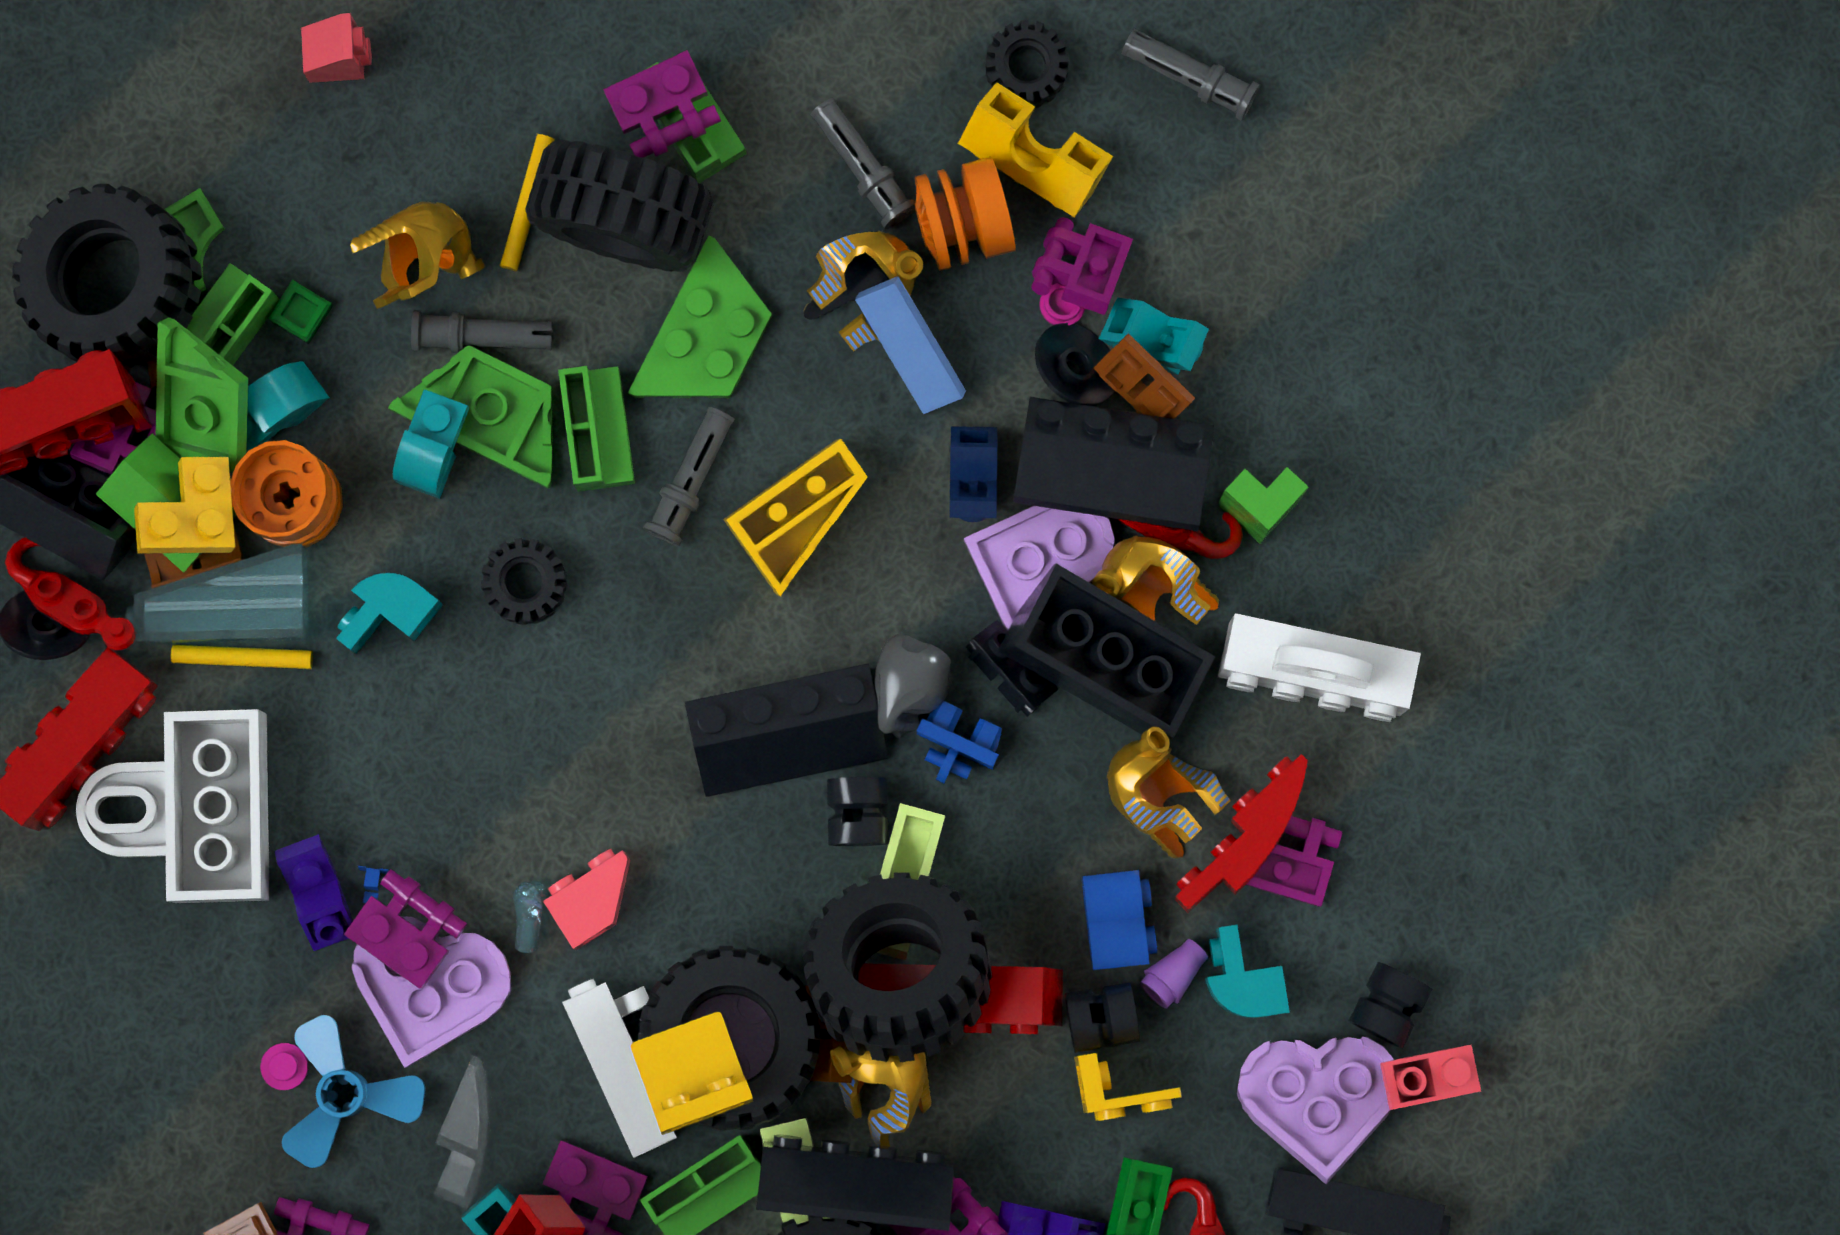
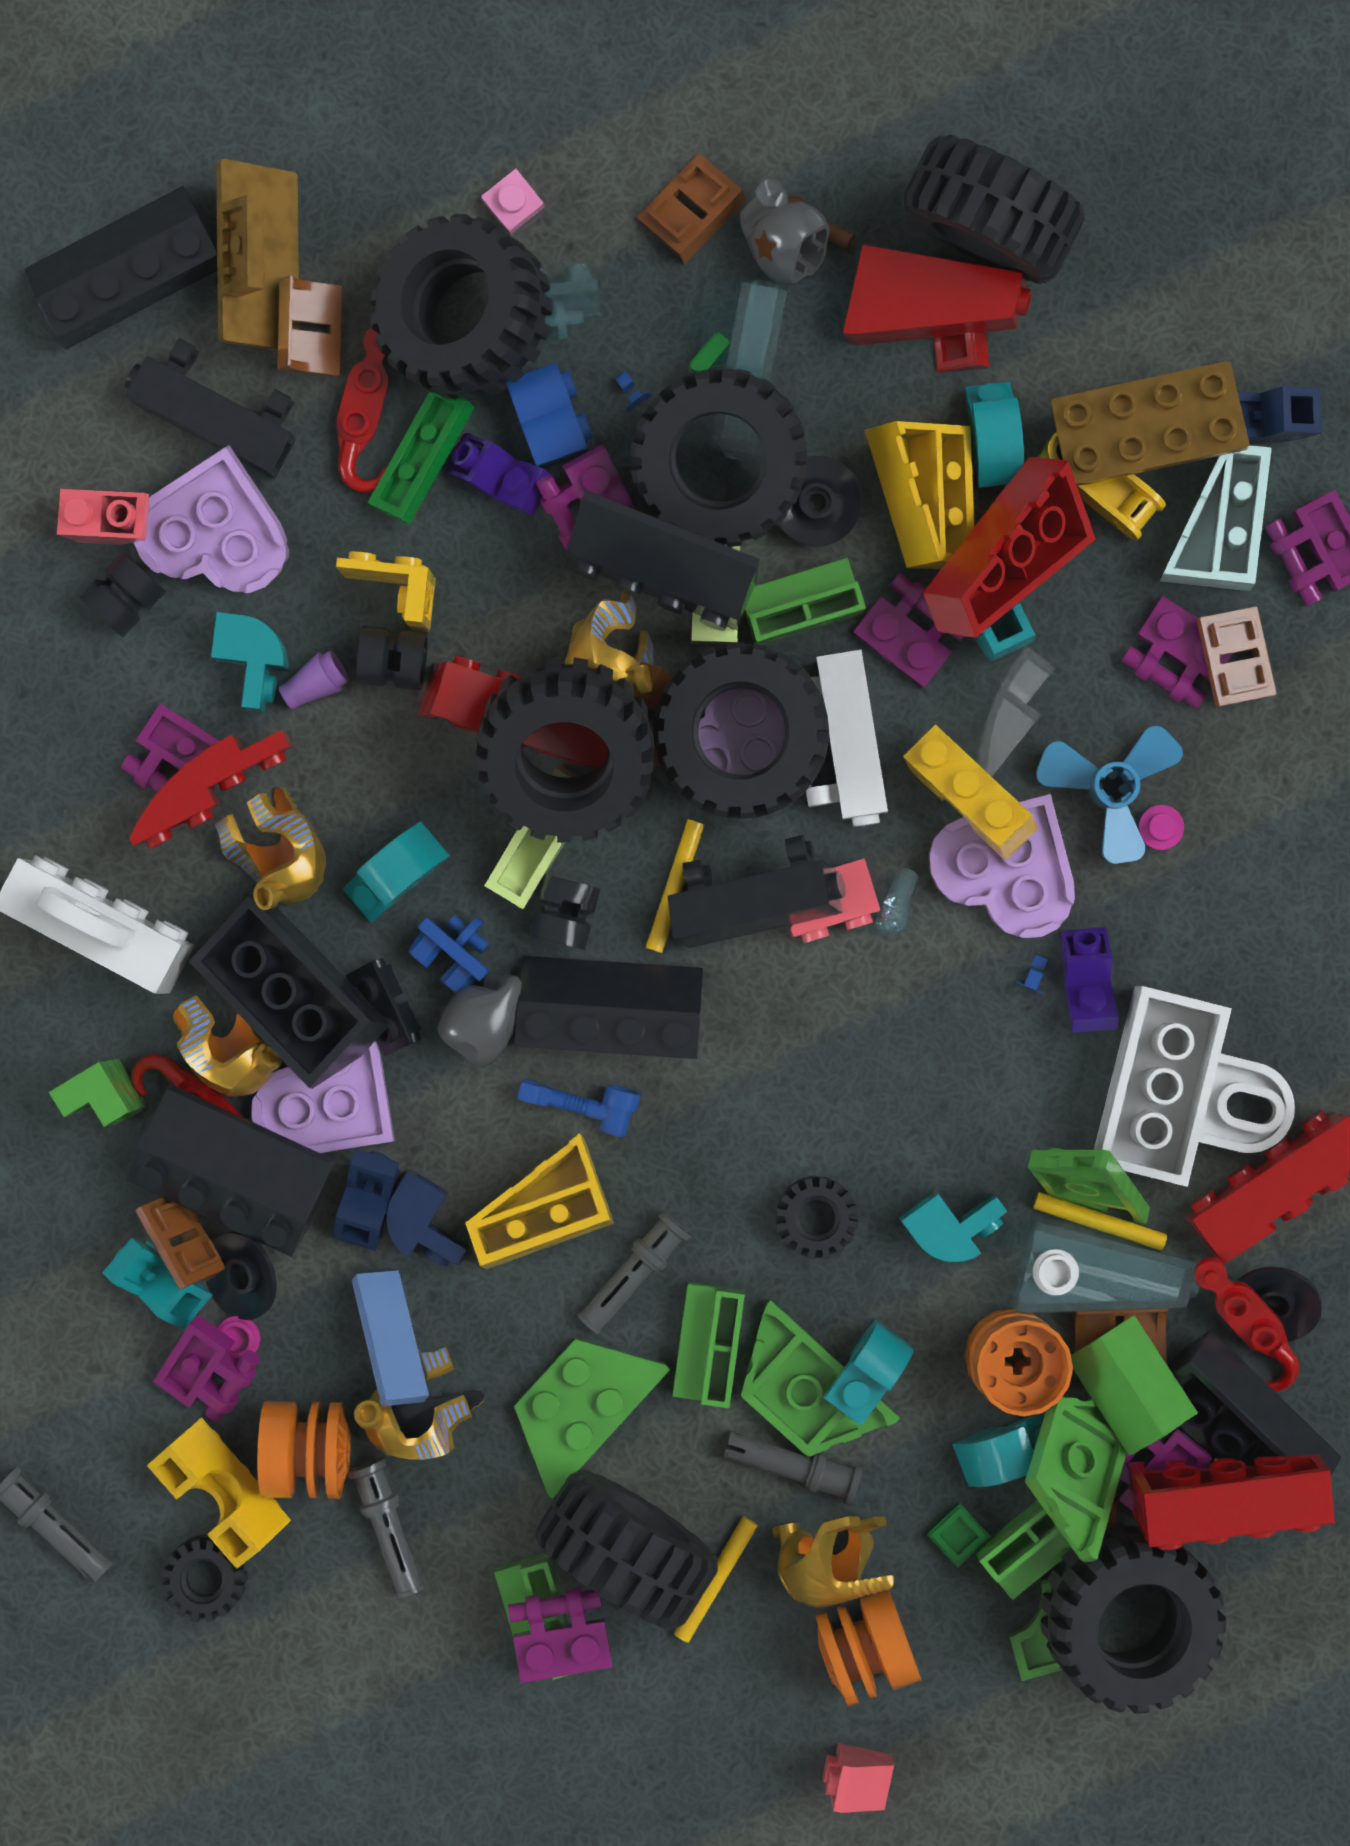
camera: 170 degrees left, 5 degrees up
(196, 523) = (1106, 1357): yellow plate -> none
(263, 691) = (1089, 1180): none -> bright green wing
(272, 592) = (1055, 1272): none -> white plate
(360, 177) = (867, 1647): none -> orange wheel
(398, 942) = (1025, 911): magenta plate -> none
(484, 1044) = (971, 791): none -> yellow arch
(668, 873) = (755, 902): none -> black brick
(691, 1072) = (784, 702): yellow bracket -> none
(754, 629) = (613, 1110): none -> blue brick
(756, 870) = (674, 885): none -> yellow bar
(923, 465) = (411, 1216): none -> dark blue brick
(1037, 804) = (395, 871): none -> teal brick
(1117, 919) = (352, 744): blue brick -> none

